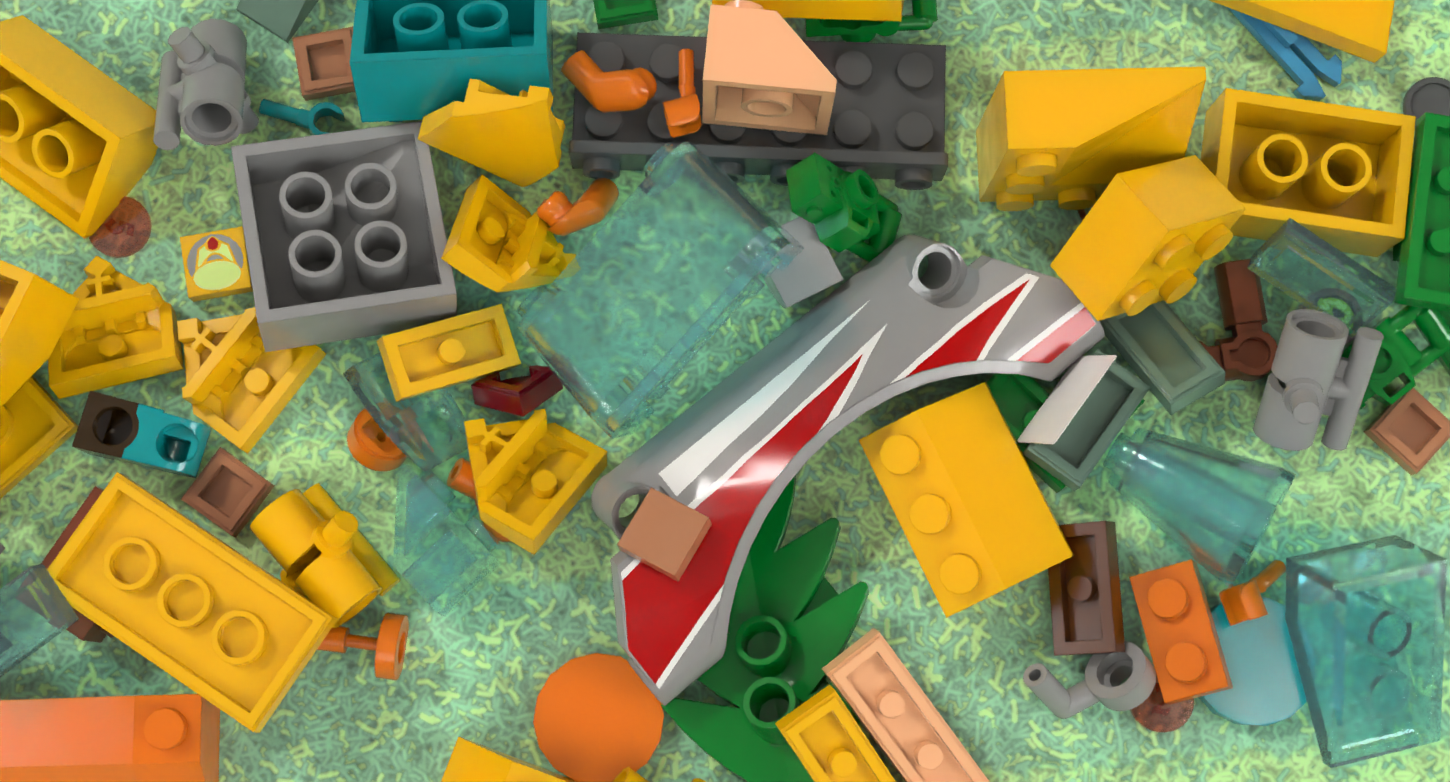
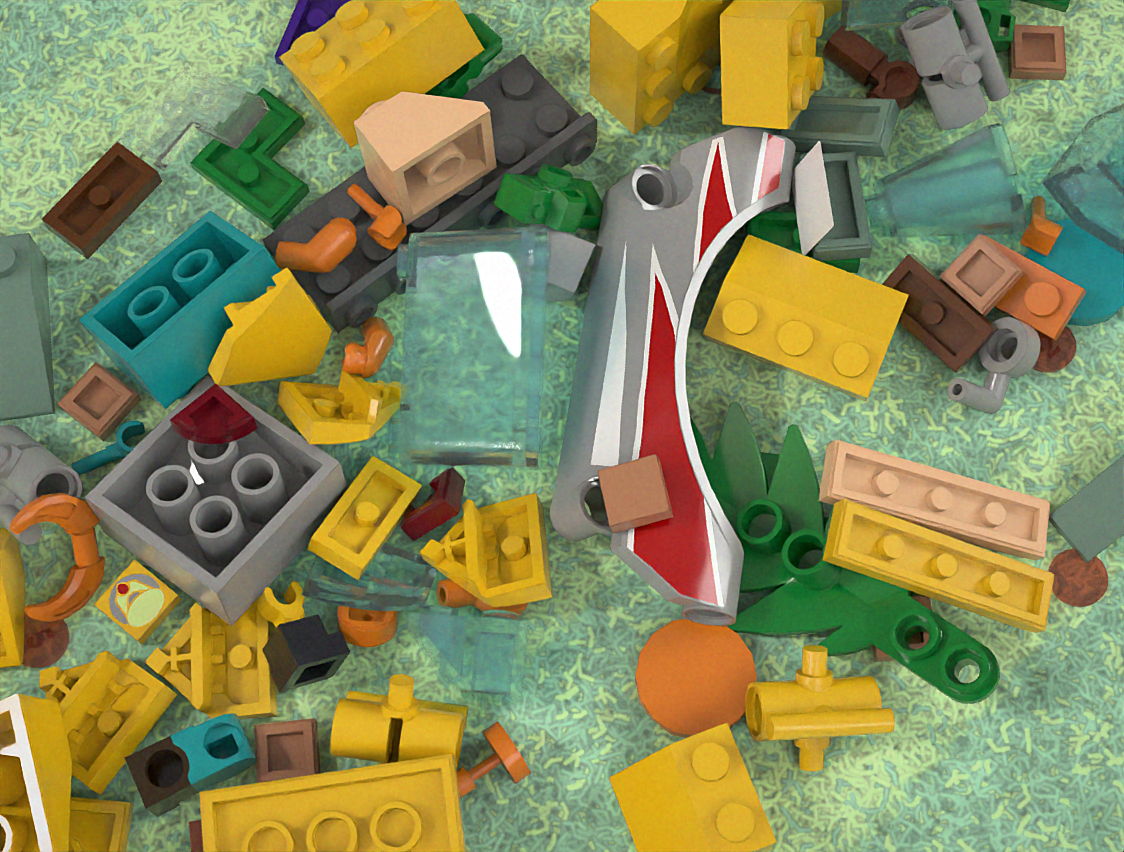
camera: 35 degrees left, 10 degrees down
(201, 203) = (85, 577): none -> orange piece
(305, 417) = (300, 646): none -> black piece
(389, 166) = (213, 419): none -> dark red tile
(1152, 595) = (982, 274): none -> nougat tile

